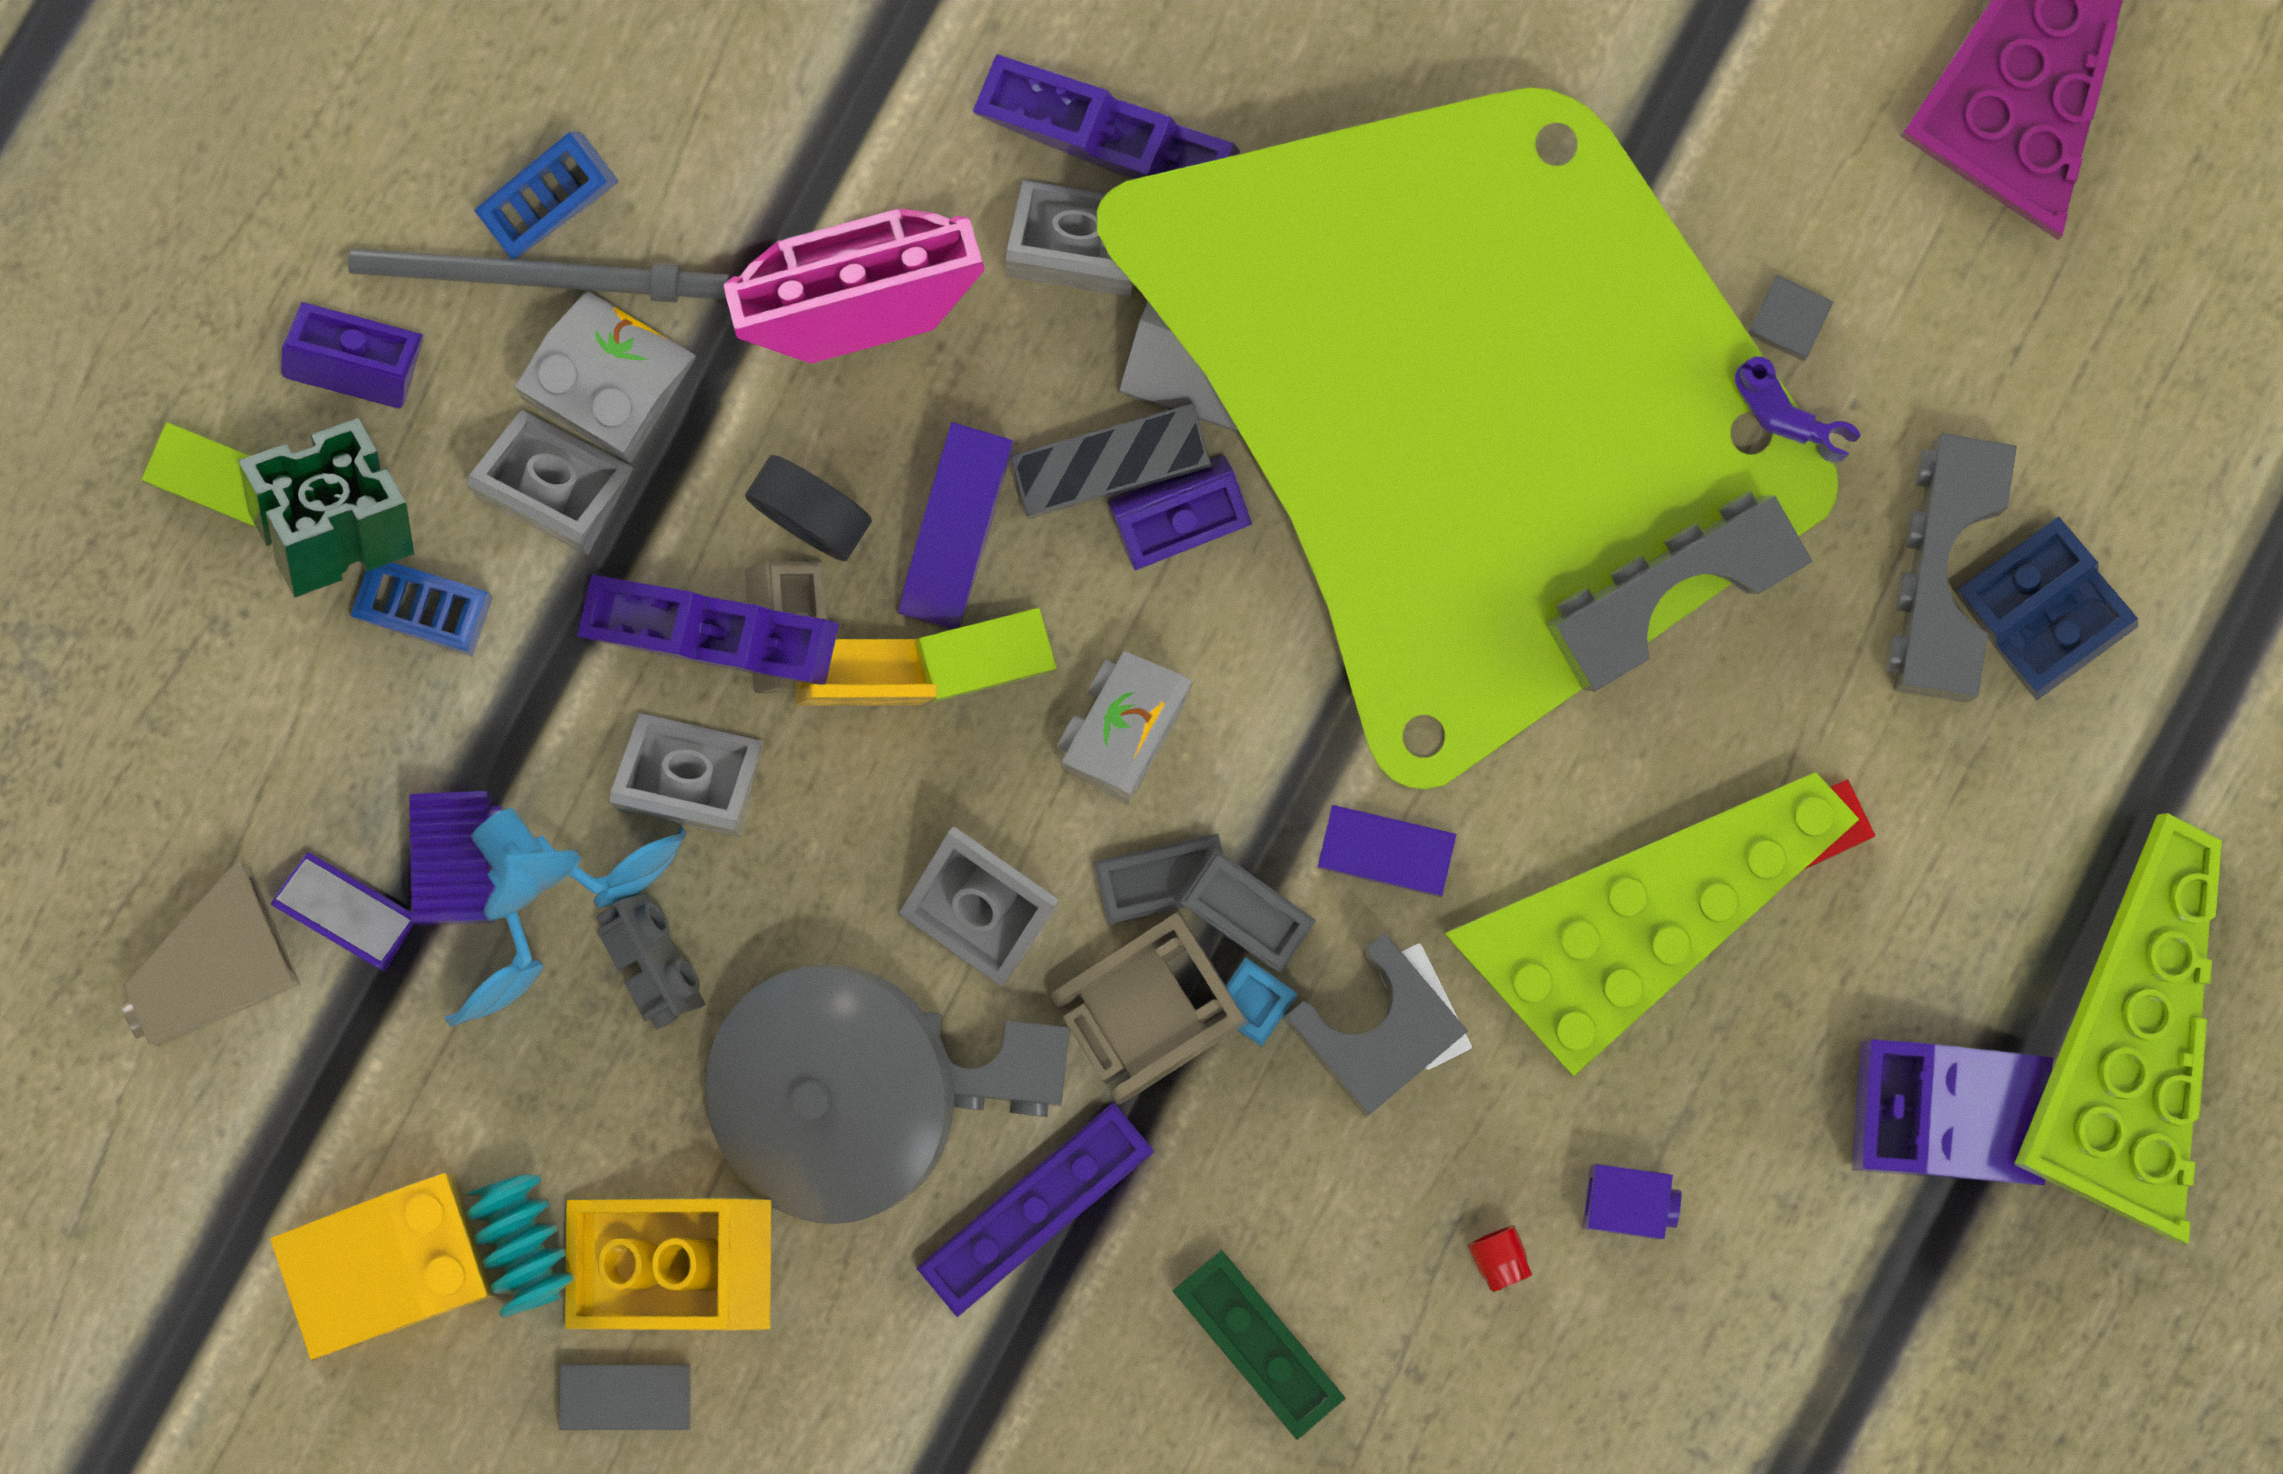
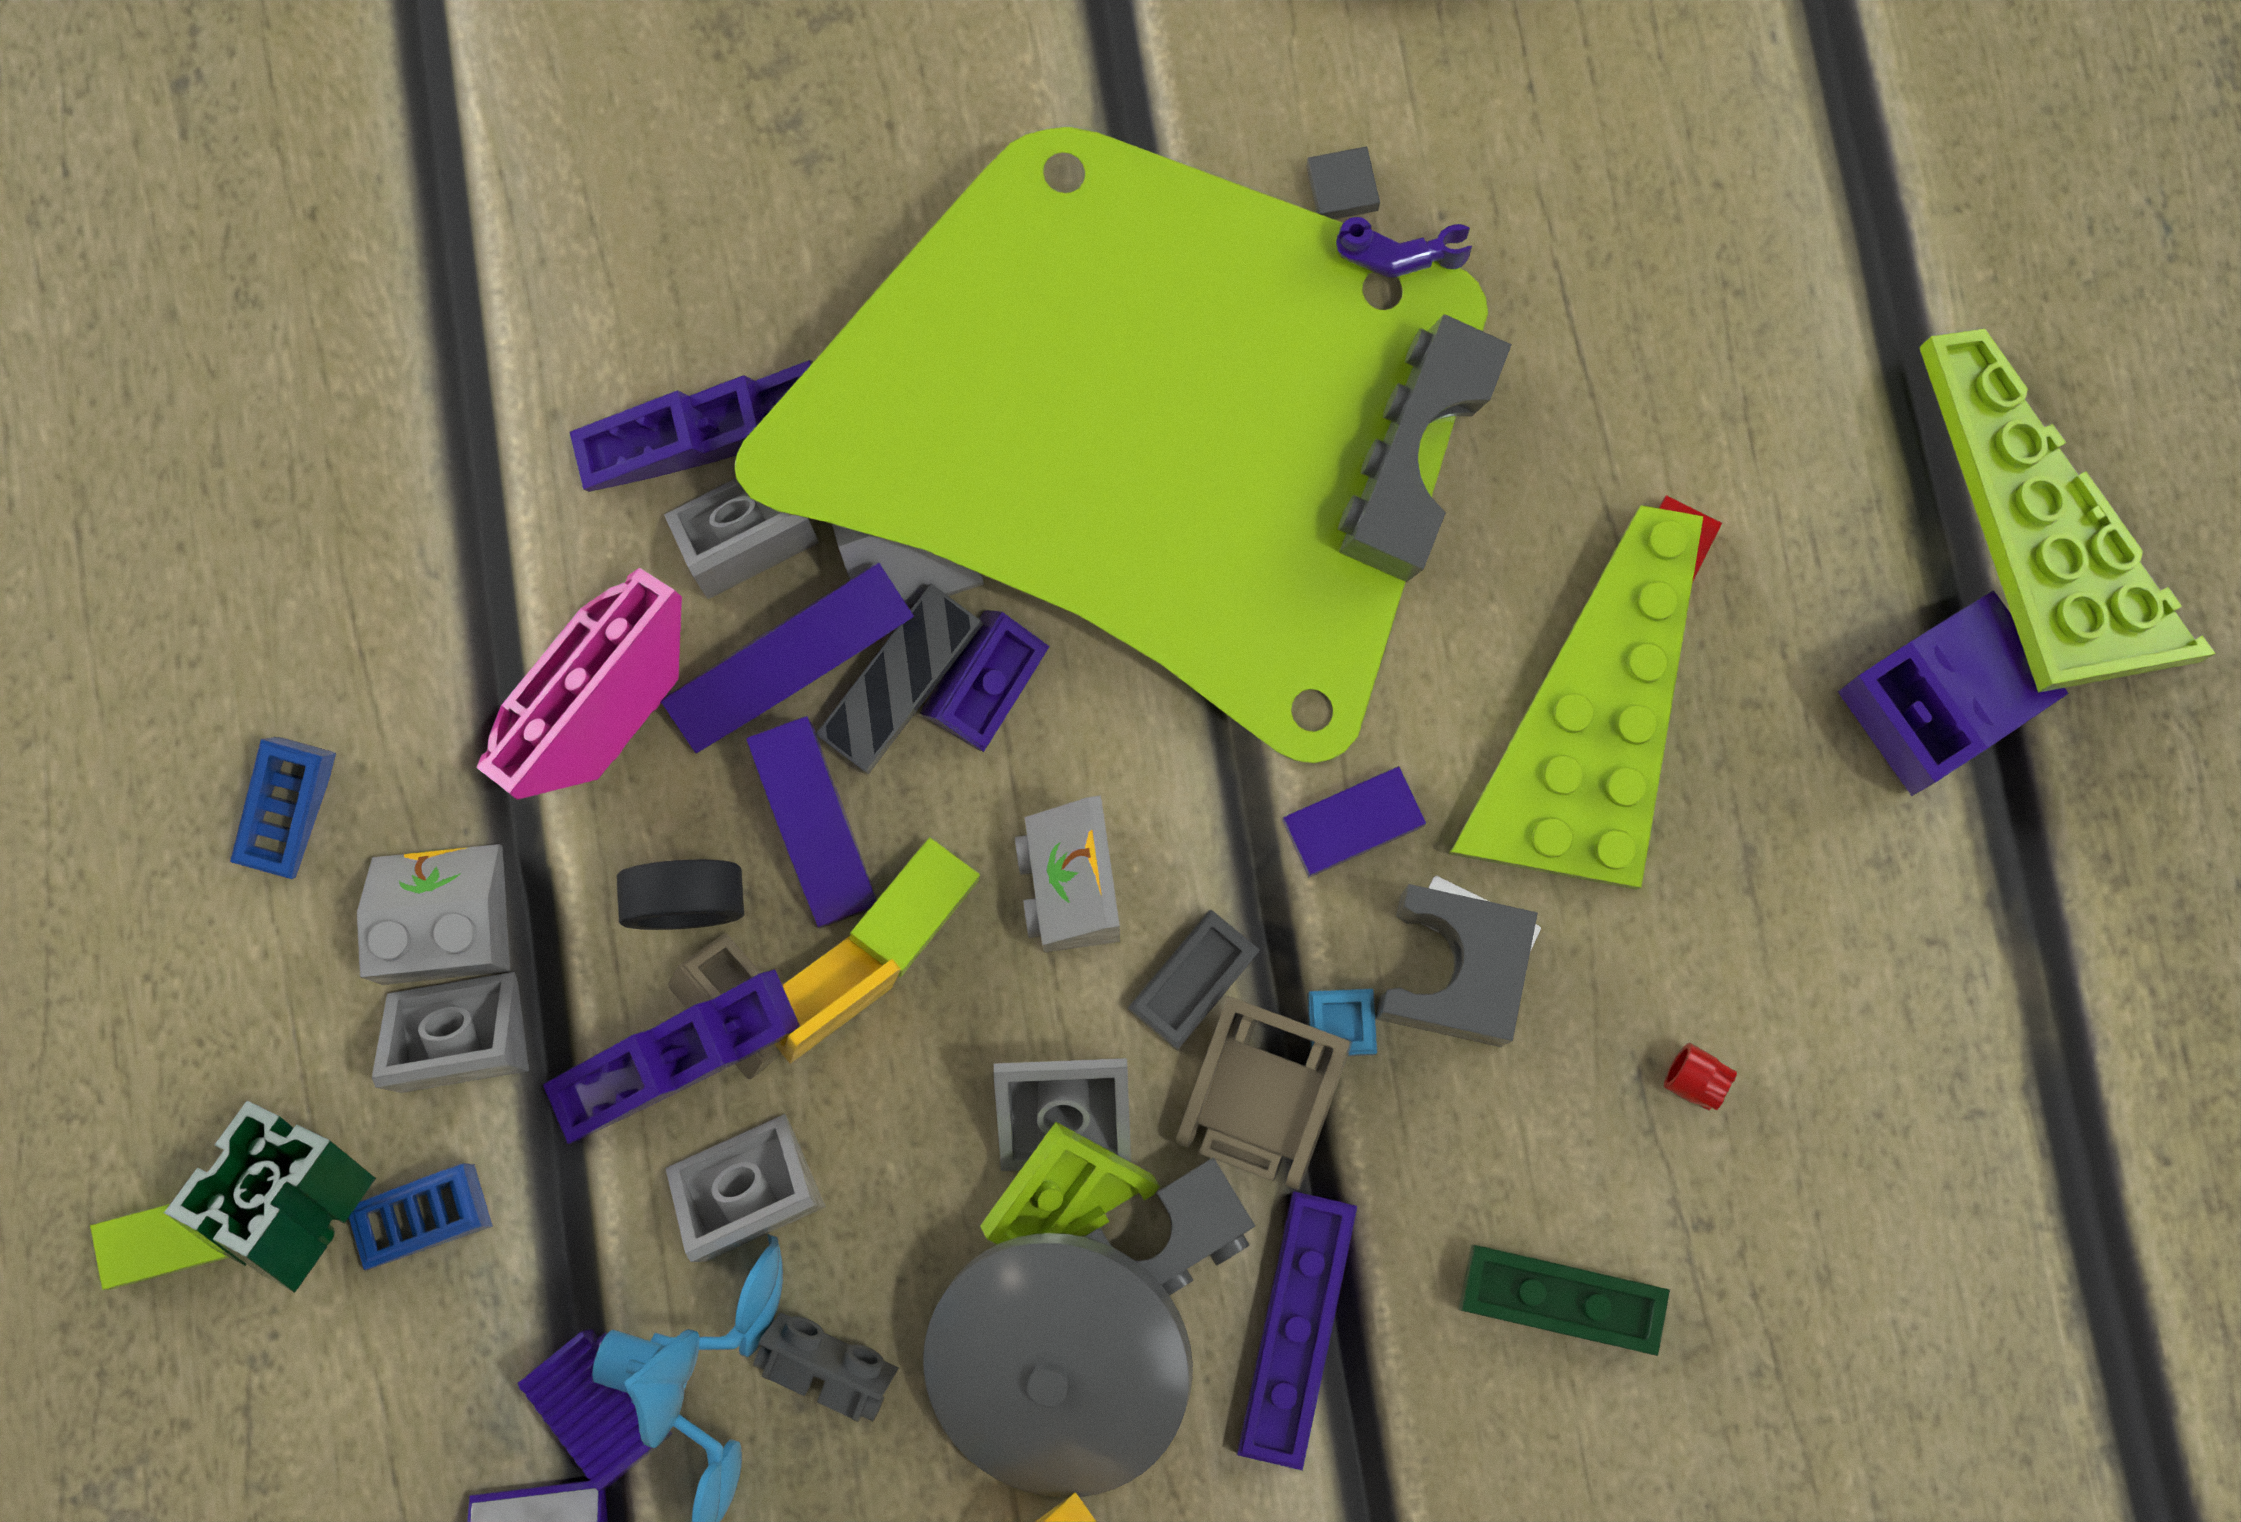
camera: 30 degrees left, 5 degrees down
(350, 355) = (211, 1055): dark purple slope -> none
(662, 282) = (428, 806): dark grey bar -> none
(938, 965) = (1065, 1189): none -> lime wing
(1032, 378) = (787, 658): none -> dark purple slope
(1245, 910) = (1279, 953): dark grey tile -> none
(1630, 1202) = (1766, 953): dark purple brick -> none
(1939, 647) = (1652, 340): dark grey arch -> none
(2047, 608) = (1710, 256): dark blue slope -> none

